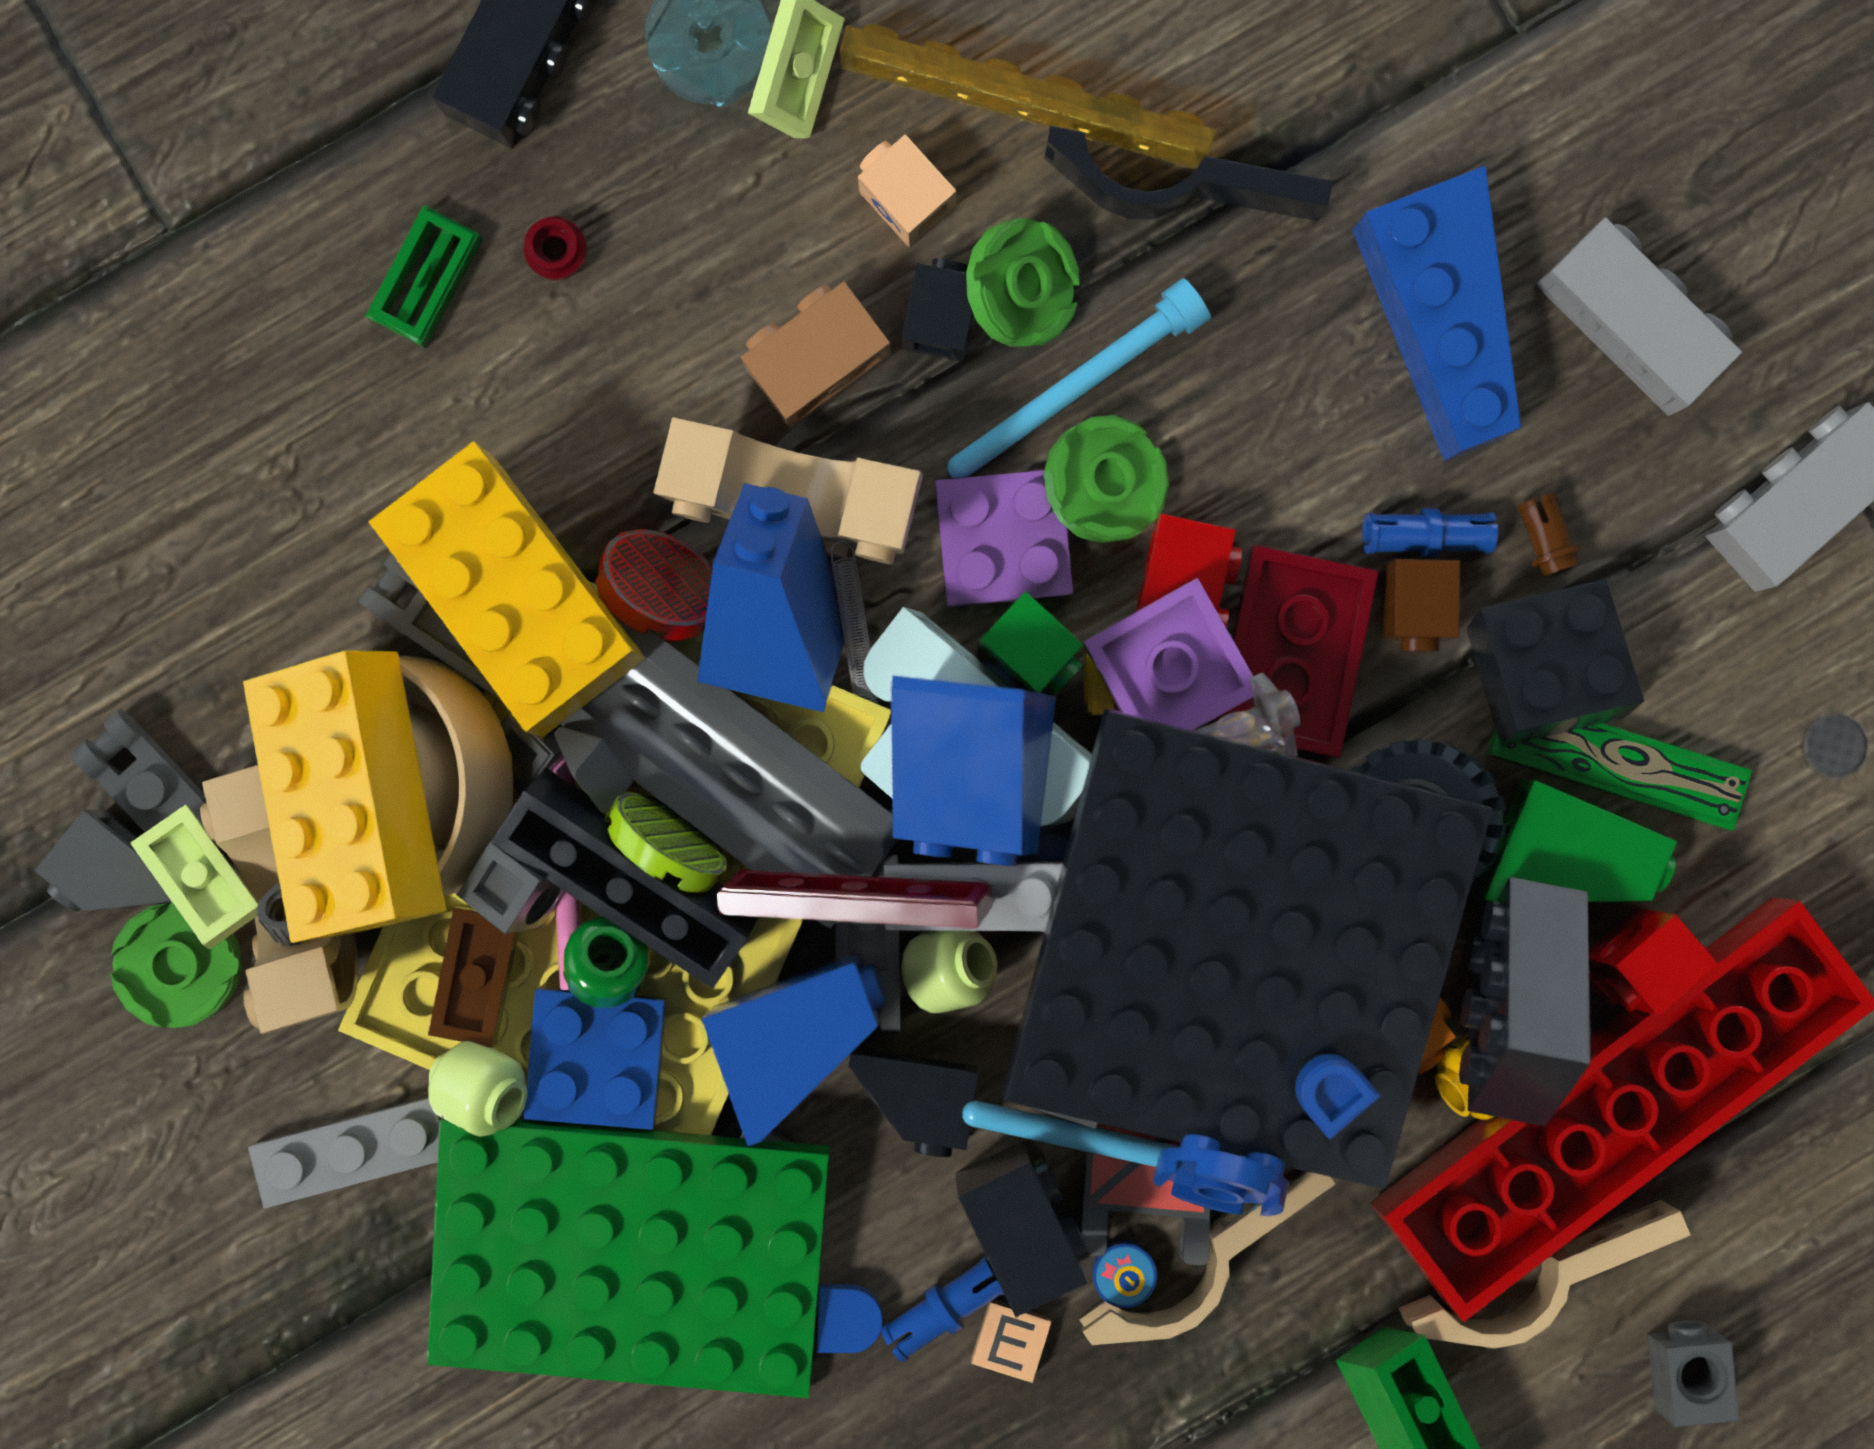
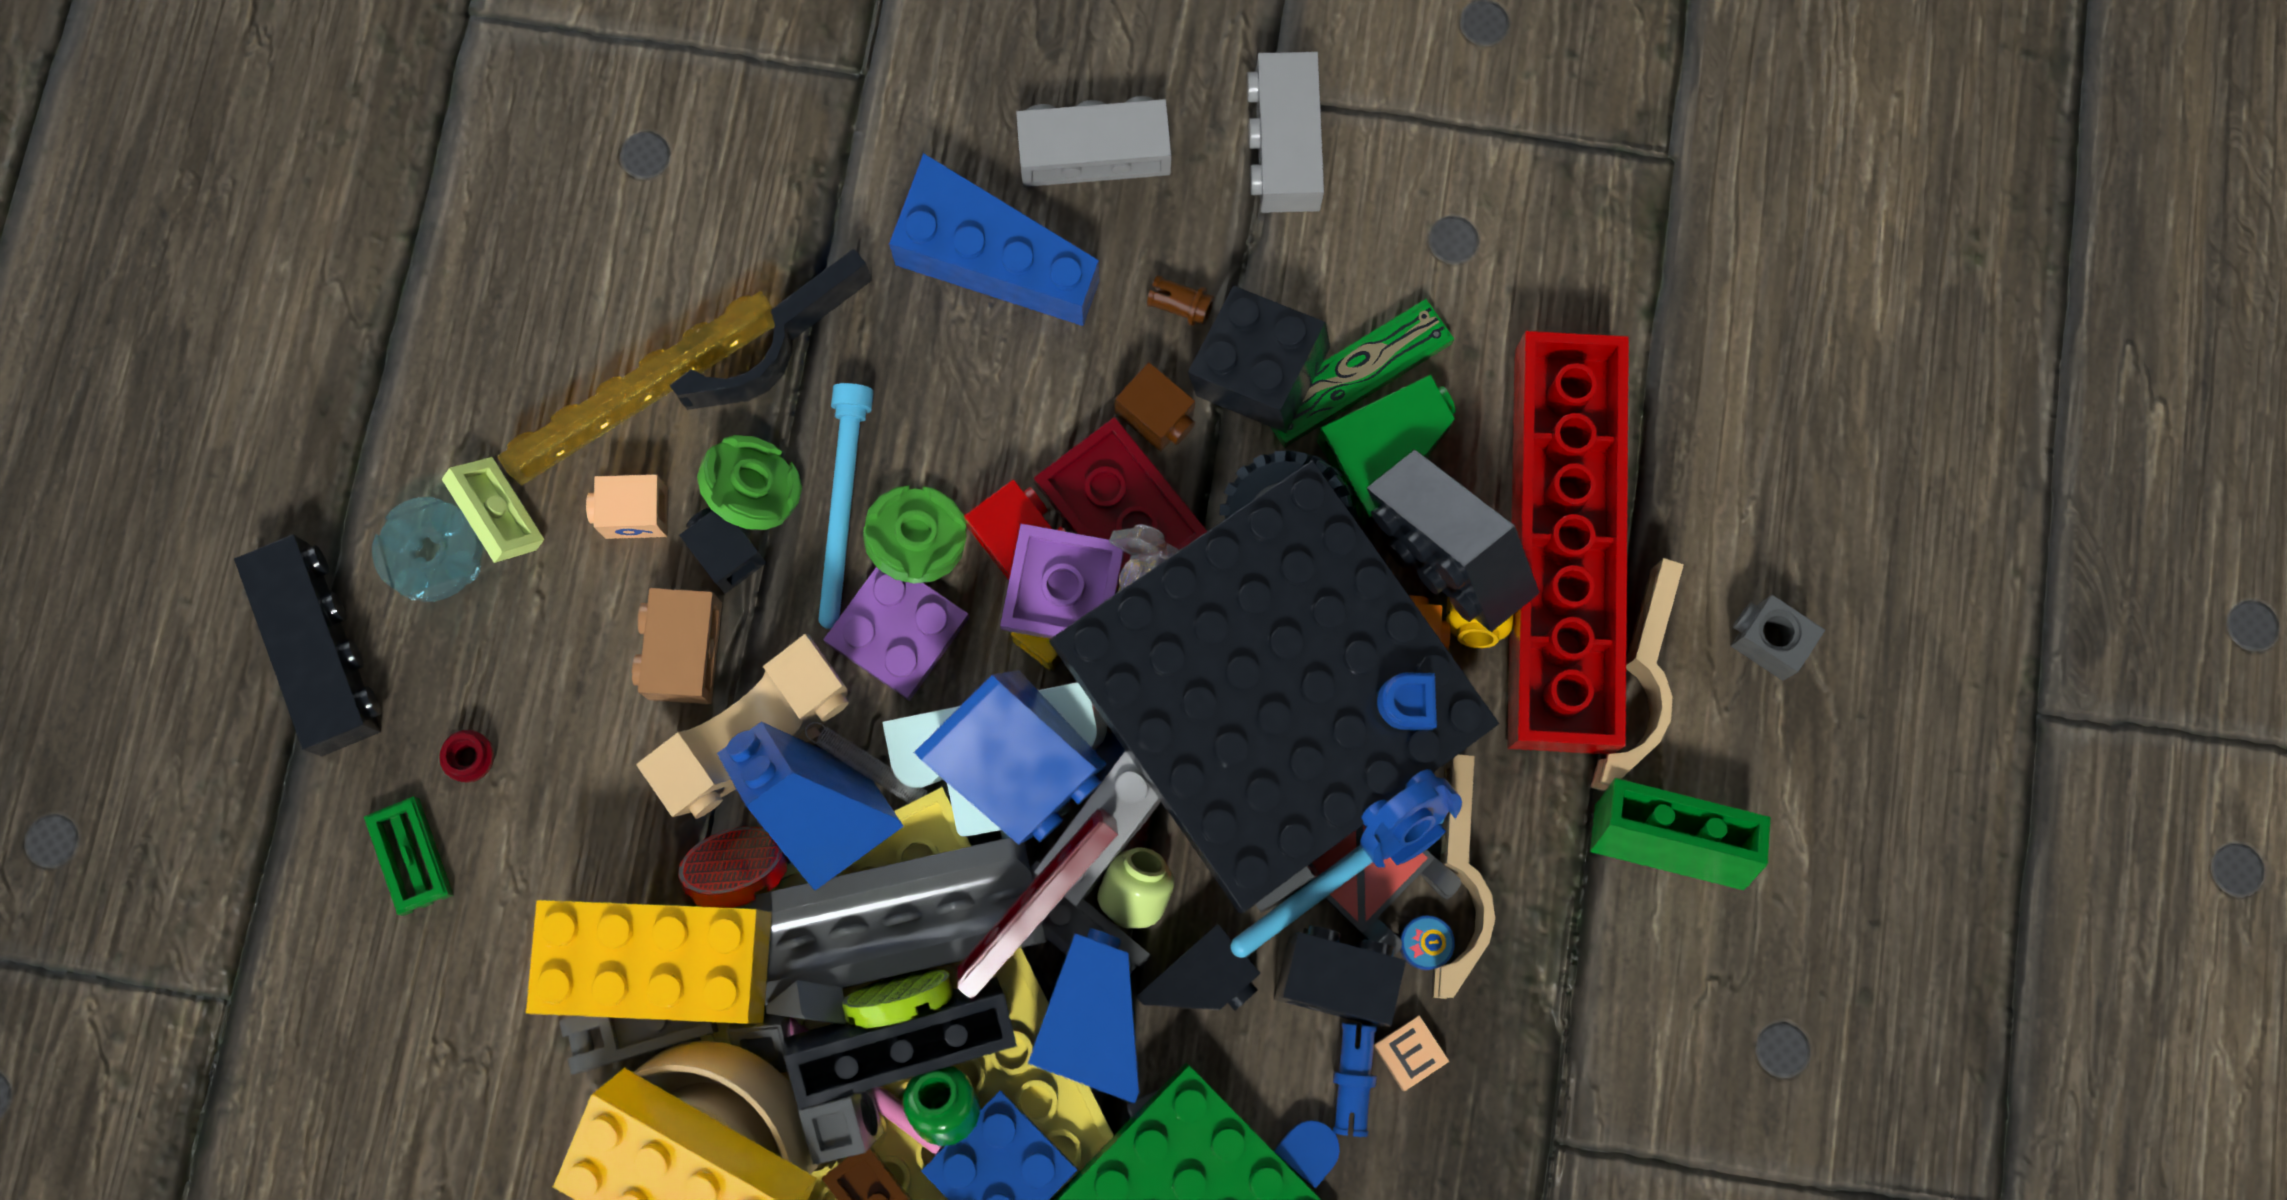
camera: 50 degrees left, 10 degrees down
(1032, 647) = (972, 657): green brick -> none
(1429, 532) = (1117, 368): blue pin -> none
(1647, 962) = (1490, 451): red brick -> none

